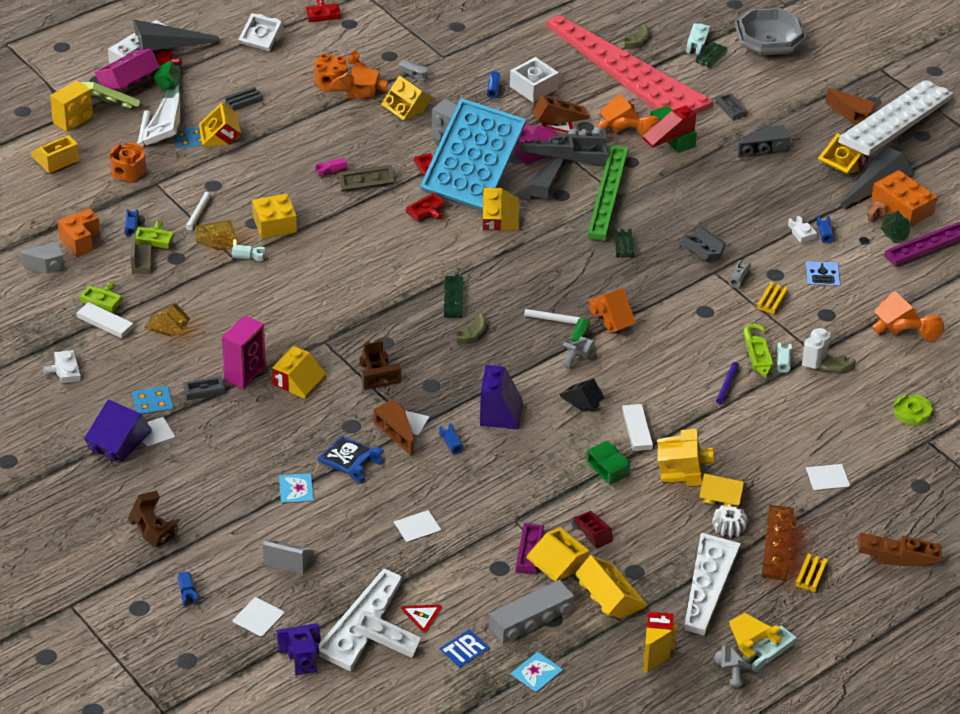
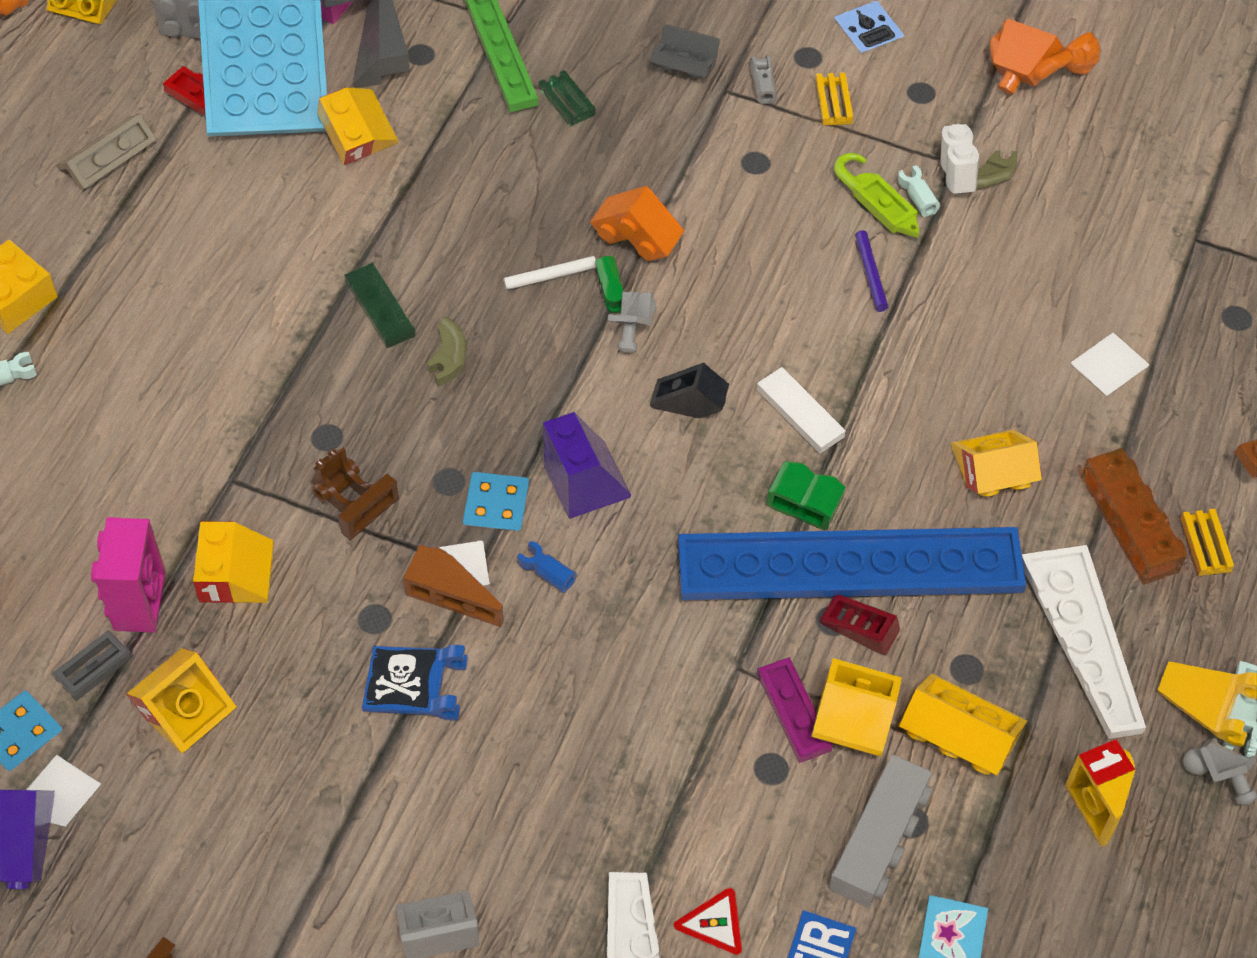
camera: 30 degrees left, 15 degrees up
(234, 416) = (182, 699): none -> yellow slope
(296, 488) = (362, 782): medium azure sticker -> none
(331, 167) = (41, 155): dark pink bar -> none
(417, 526) = (597, 755): white sticker -> none
(426, 206) = (238, 164): red plate -> none
(448, 403) = (496, 501): none -> dark azure sticker
(609, 500) = (850, 563): none -> blue plate
(682, 458) = (915, 437): yellow piece -> none
(729, 521) = (1043, 512): white gear -> none
(913, 409) = (1142, 196): lime tile -> none

